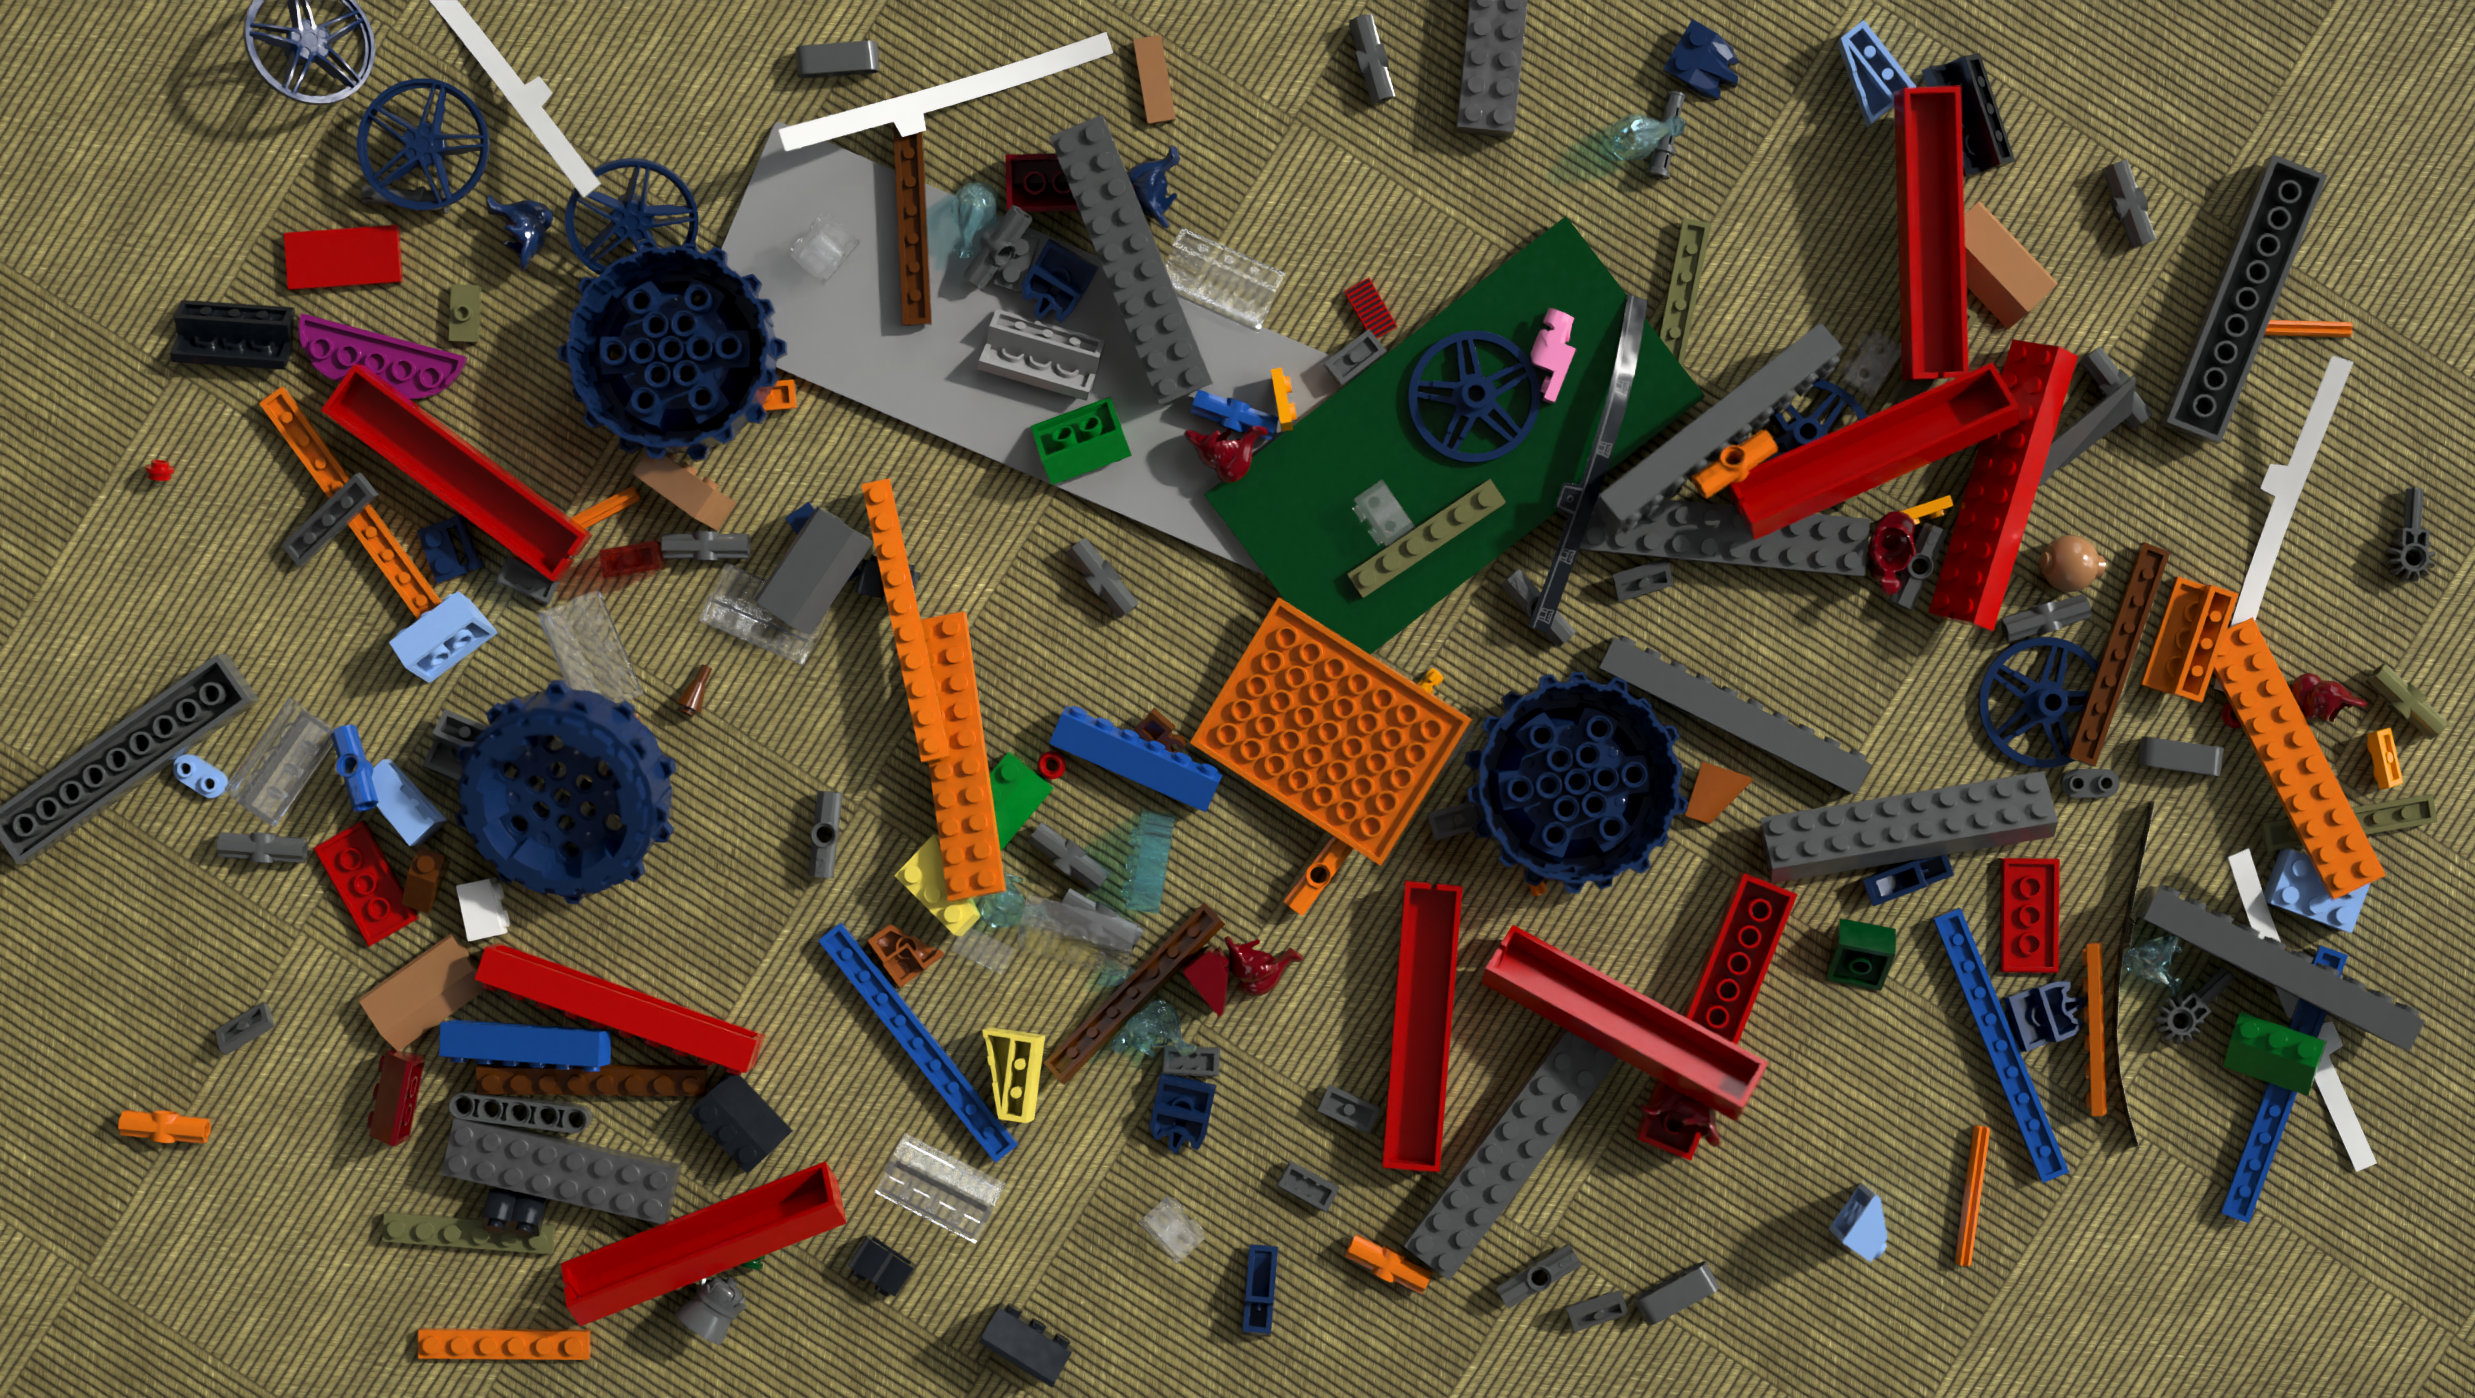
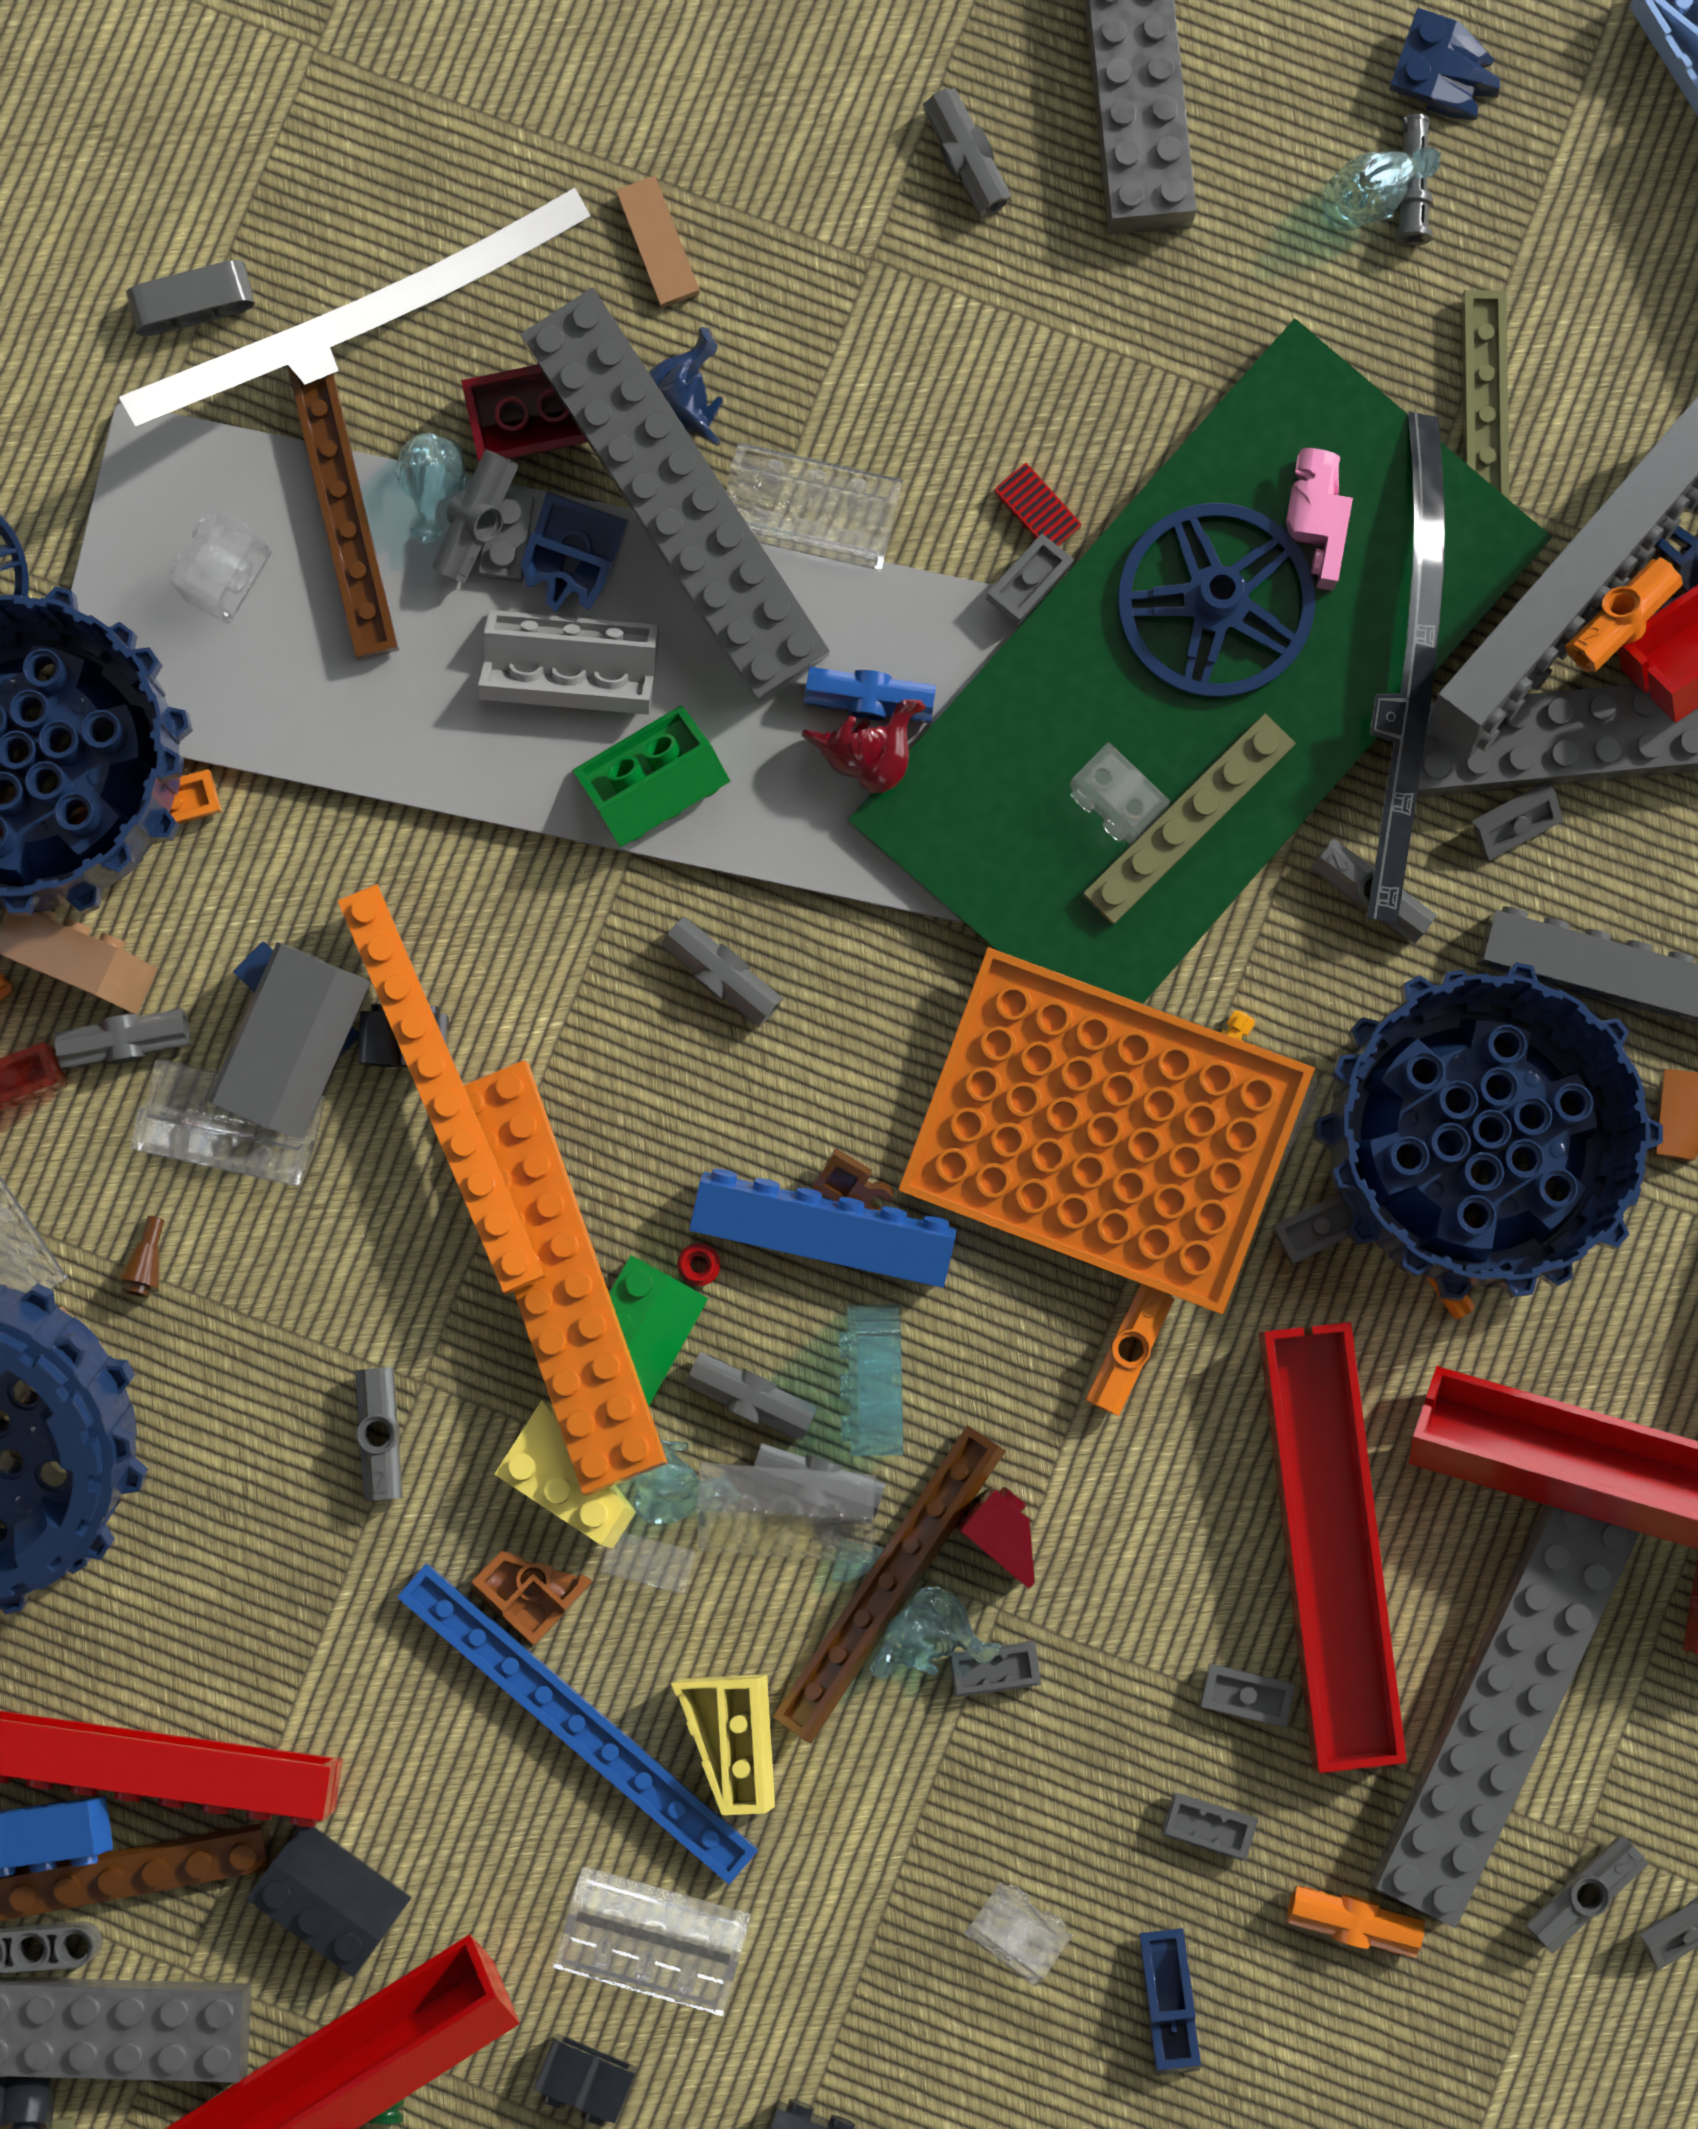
camera: 10 degrees left, 5 degrees down
(1181, 1111) = (996, 1748): dark blue plate -> none
(1256, 968) = (1067, 1510): dark red piece -> none
(1285, 410) = (931, 641): light orange plate -> none

